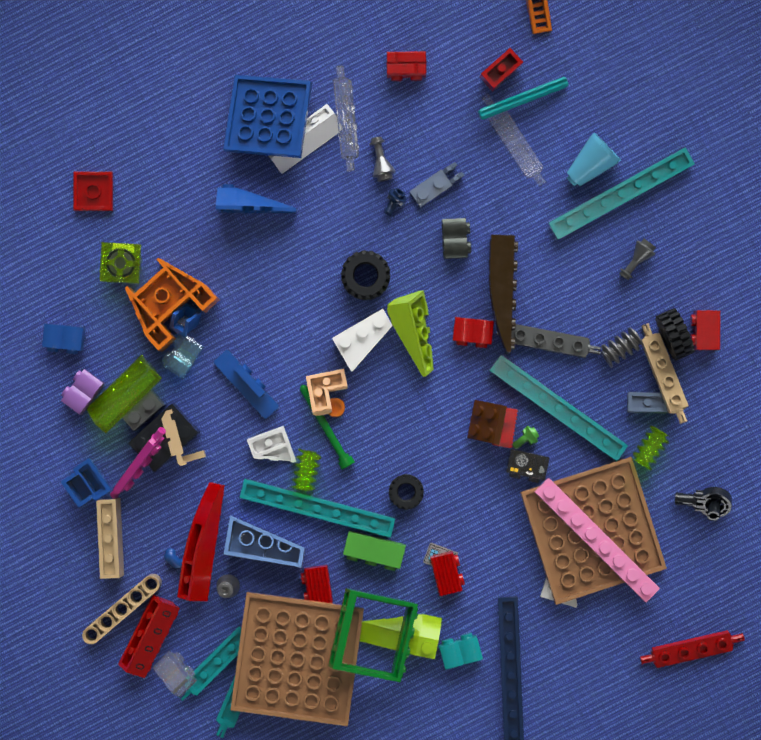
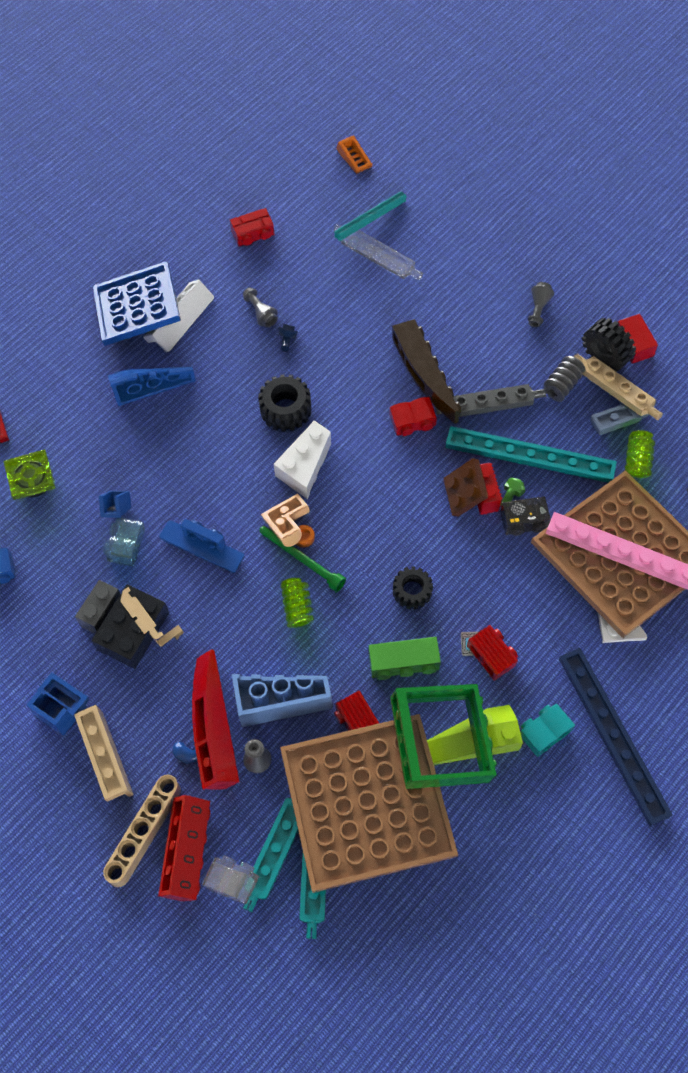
camera: 20 degrees left, 25 degrees down
(82, 391) = (26, 614): medium lavender brick -> none
(123, 394) = (72, 597): clear neon green slope -> none
(142, 460) = (110, 648): dark pink plate -> none
(163, 296) = (79, 492): orange wedge -> none
(272, 446) = (252, 595): white wing -> none
(317, 508) = (323, 638): teal plate -> none
(346, 118) = (212, 284): clear plate -> none
(409, 321) = (345, 423): lime wedge -> none
(434, 185) = (320, 312): sand blue hinge -> none
(455, 238) = (359, 345): pearl dark grey brick -> none
(501, 69) = (340, 200): red brick -> none
(592, 161) = (458, 238): medium azure cone -> none
(621, 193) = (495, 261): teal plate -> none

